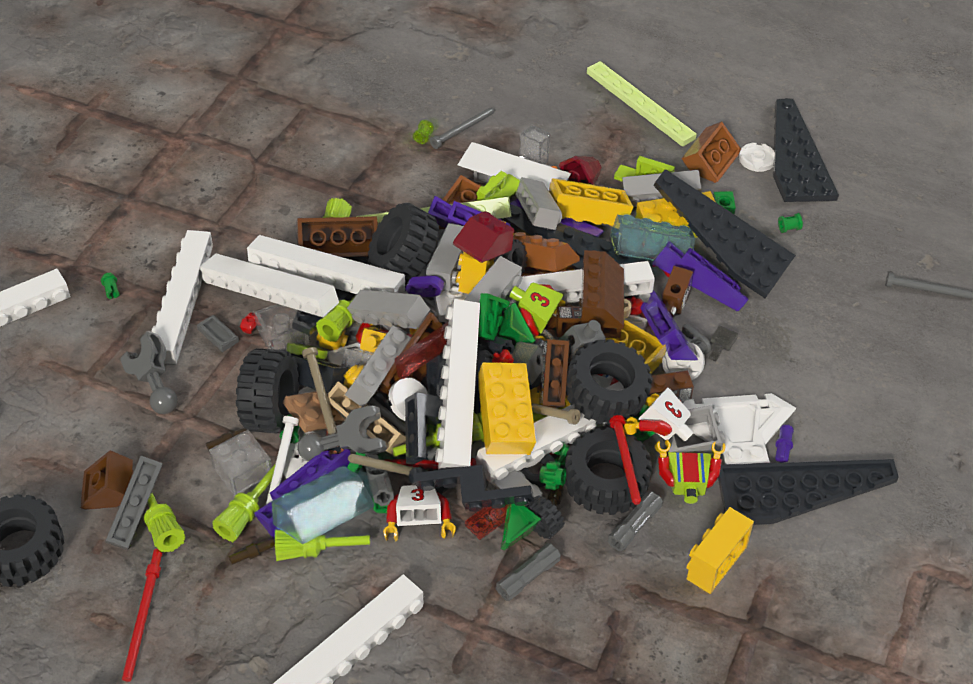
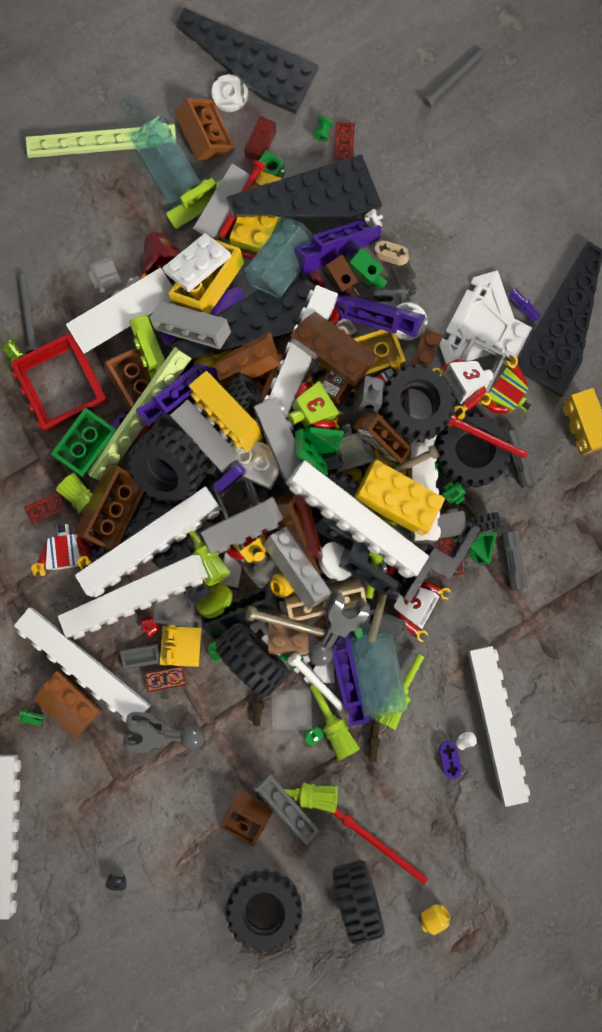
camera: 60 degrees left, 35 degrees up
(67, 600) = (358, 902): none -> black tyre
(140, 302) = (67, 704): none -> dark orange slope
(208, 359) = (165, 678): none -> tile
(224, 495) = (313, 735): none -> green piece
(237, 348) = (180, 646): none -> yellow hinge
(275, 629) = (454, 758): none -> dark purple beam
(276, 228) = (63, 552): none -> torso
(305, 209) = (45, 508): none -> clear red tile
(305, 630) = (466, 740): none -> white piece
(380, 195) = (83, 442): none -> green slope
(426, 144) = (43, 354): none -> red piece
(484, 237) = (231, 409): dark red slope -> none
(504, 357) = (348, 469): red piece -> none
(595, 184) = (196, 262): none -> white plate
(656, 195) = (258, 166): none -> red bar
(659, 277) = (315, 279): none -> dark red tile
(666, 135) = (165, 159): none -> clear light blue slope
(699, 310) = (364, 263): none -> green torso
(733, 319) = (393, 250): none -> tan beam
(744, 187) = (260, 138): none -> clear red brick
(751, 293) = (372, 218): none -> white piece
(799, 242) = (344, 140): none -> clear red tile

